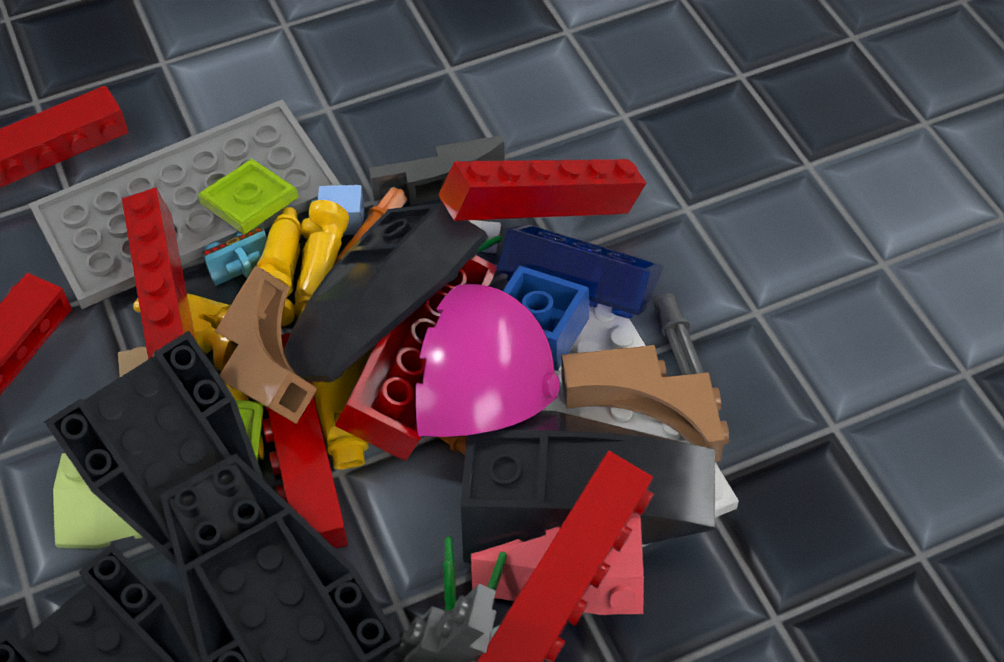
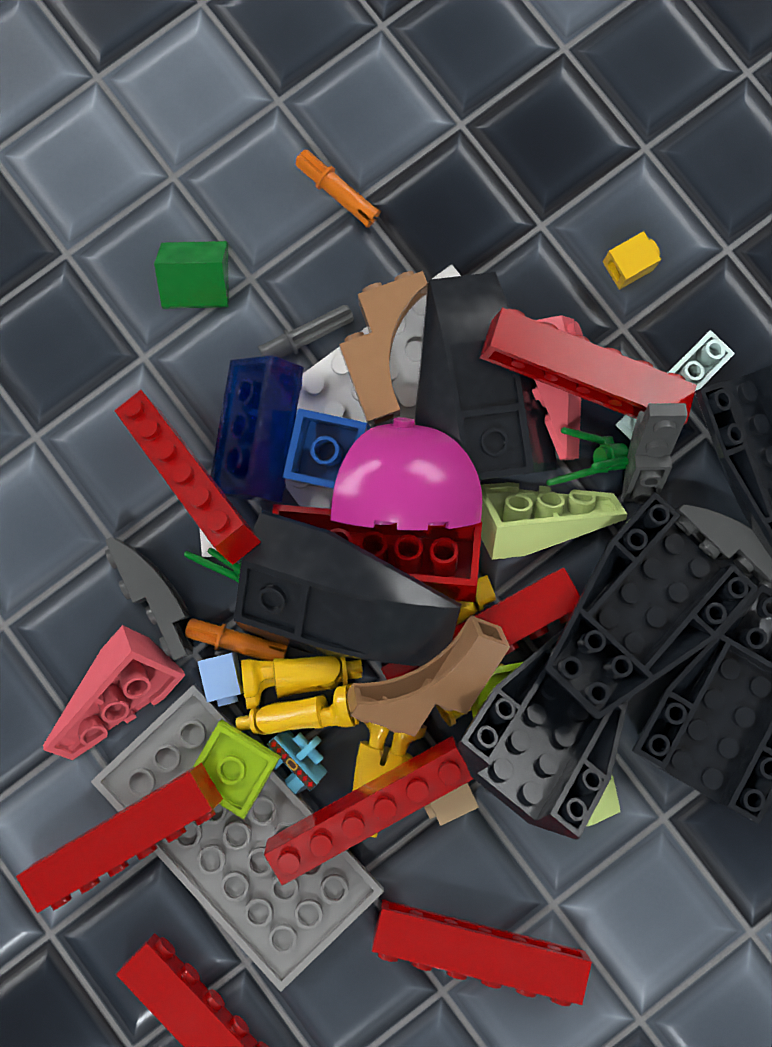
camera: 100 degrees left, 30 degrees up
(220, 108) = (119, 838): none -> red brick
(357, 129) = (118, 684): none -> coral wedge
(412, 515) = (528, 520): none -> yellowish green wedge
(769, 258) = (193, 274): none -> green slope
(860, 396) = (337, 188): none -> orange axle

